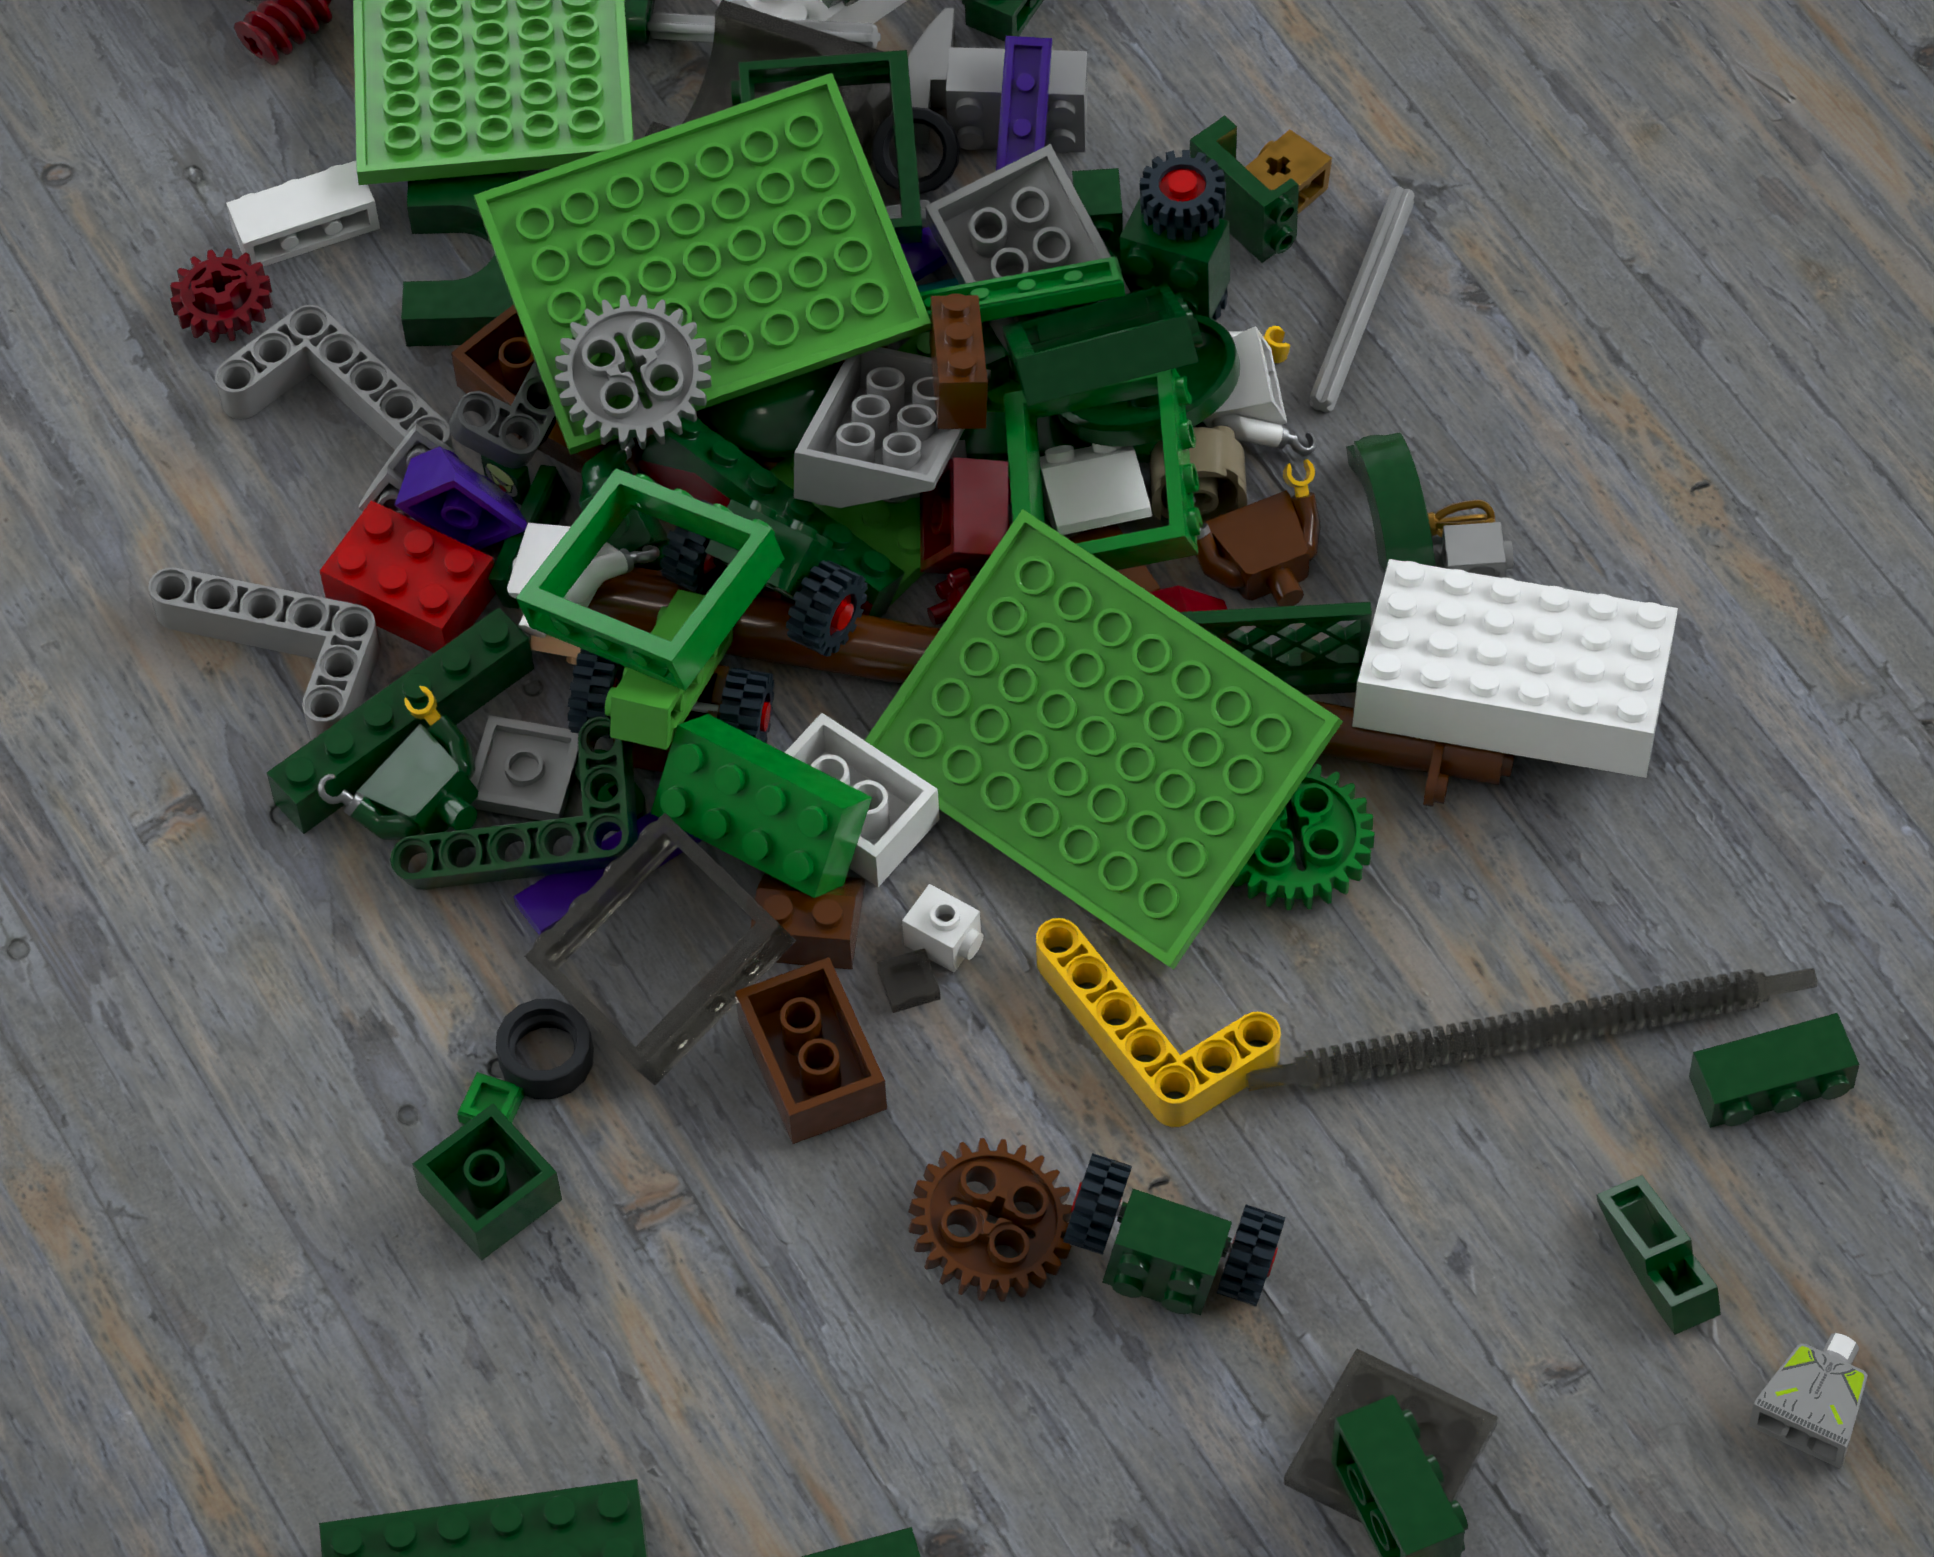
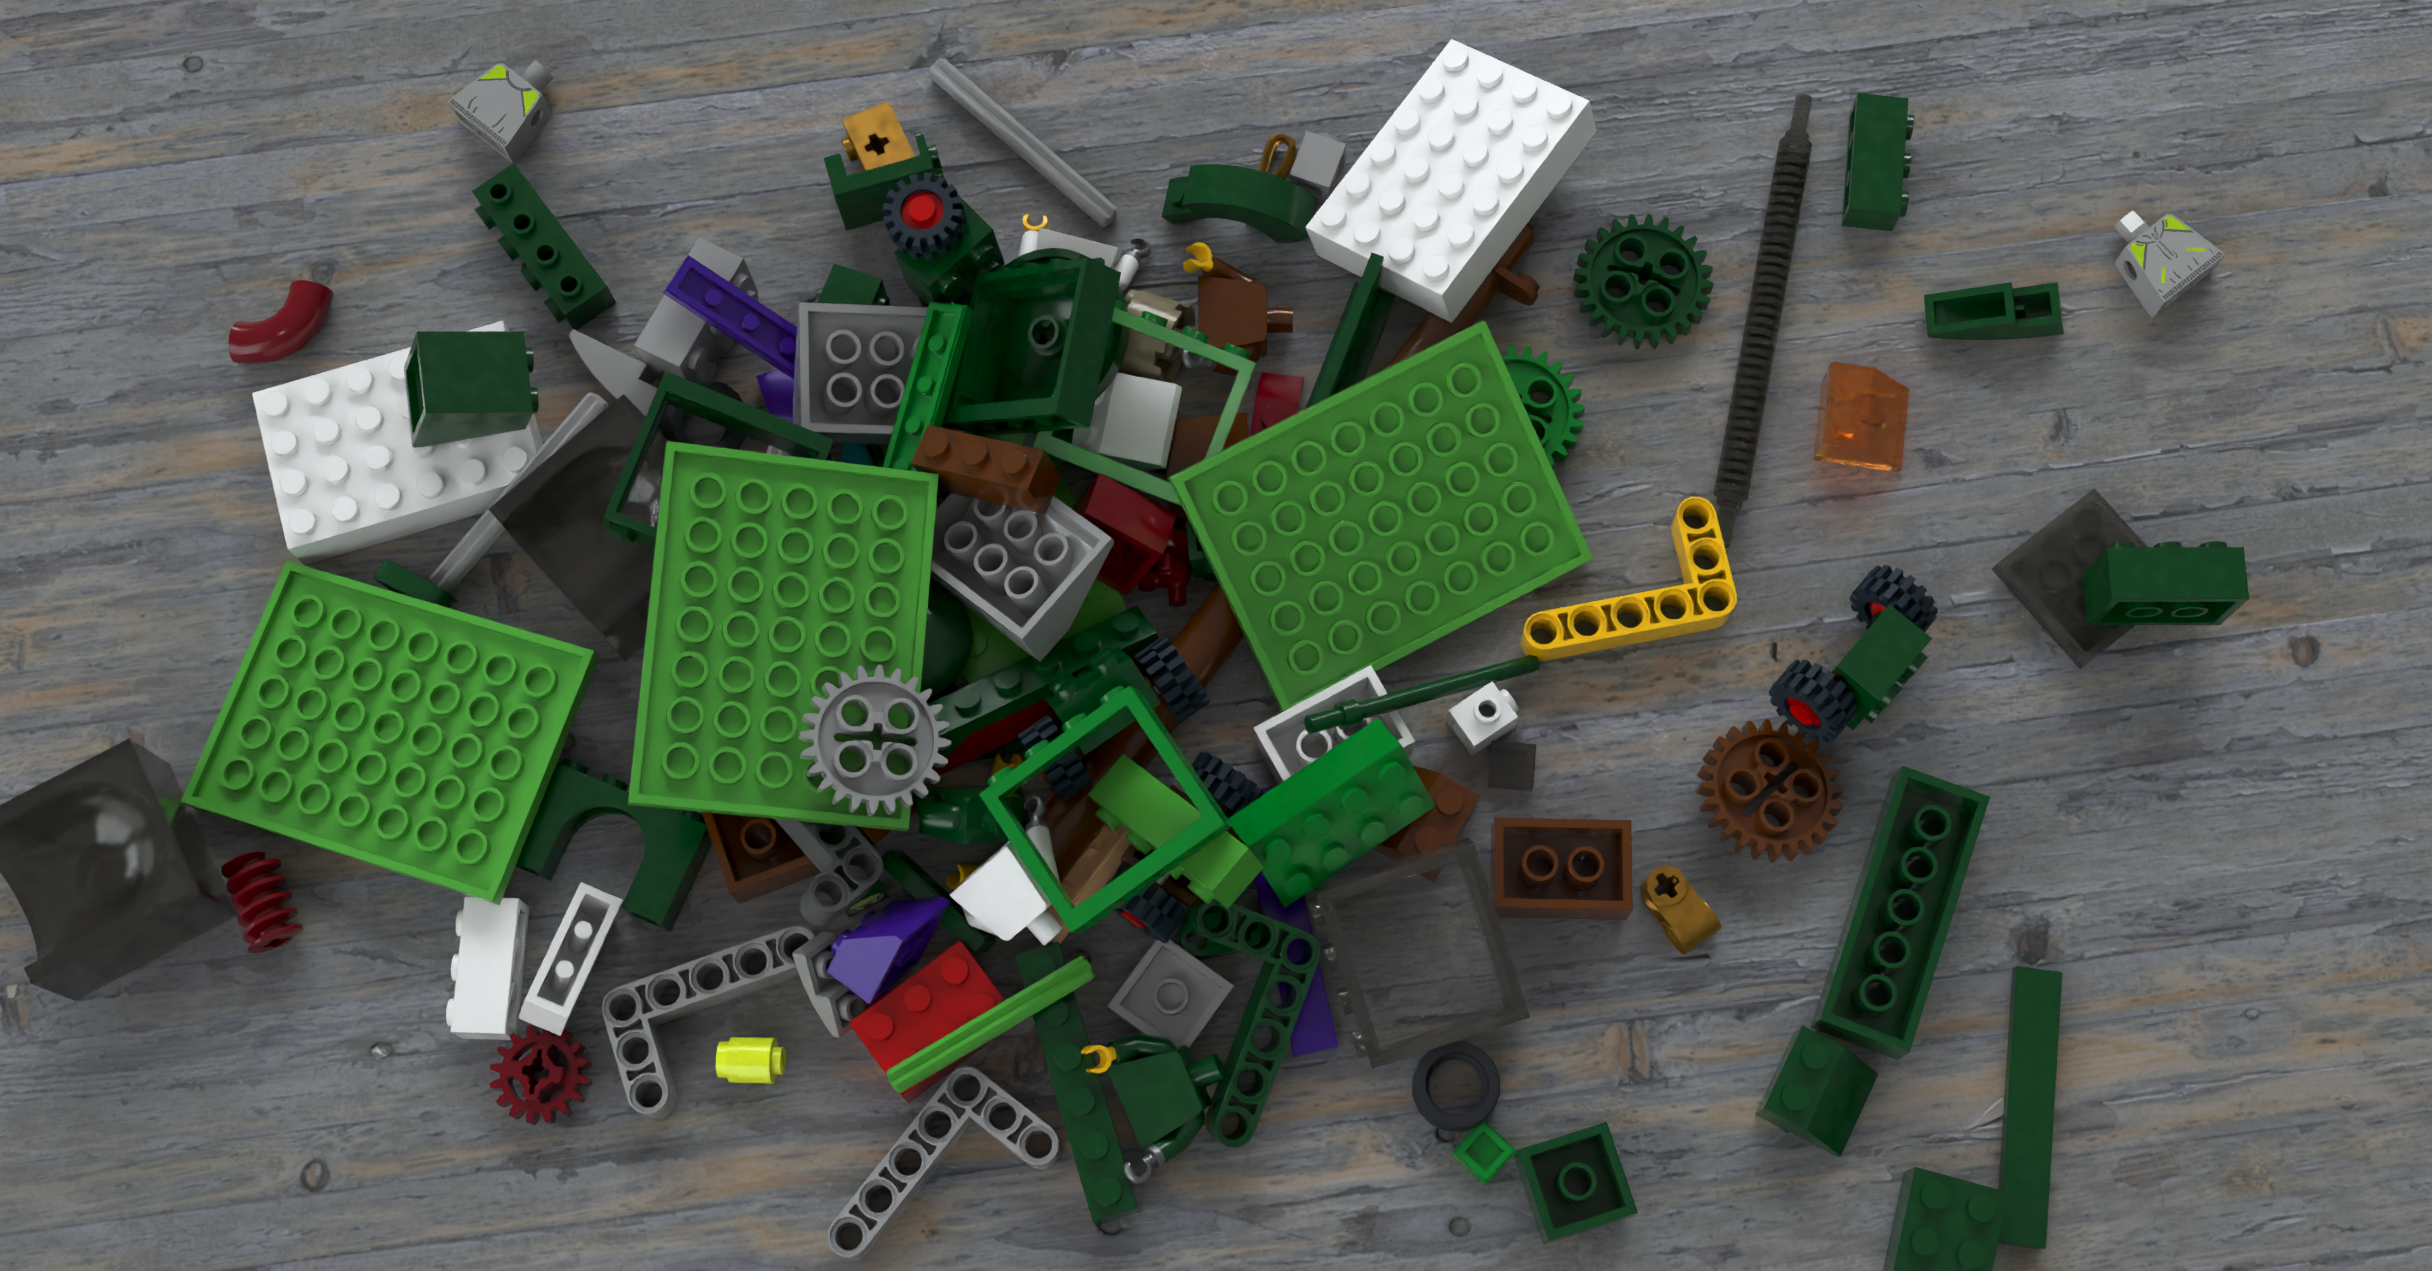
camera: 65 degrees left, 15 degrees up
(307, 450) = (750, 1060): none -> neon yellow brick
(334, 261) = (570, 959): none -> white brick
(417, 605) = (990, 1024): none -> bright green axle
(686, 1379) = (1817, 1091): none -> dark green slope
(819, 1186) = (1681, 913): none -> pearl gold piece
(866, 774) = (1351, 713): none -> dark green bar
(912, 1382) = (1900, 913): none -> dark green brick
(1461, 1162) = (1861, 418): none -> clear orange slope
(1555, 897) = (1630, 314): none -> dark green gear

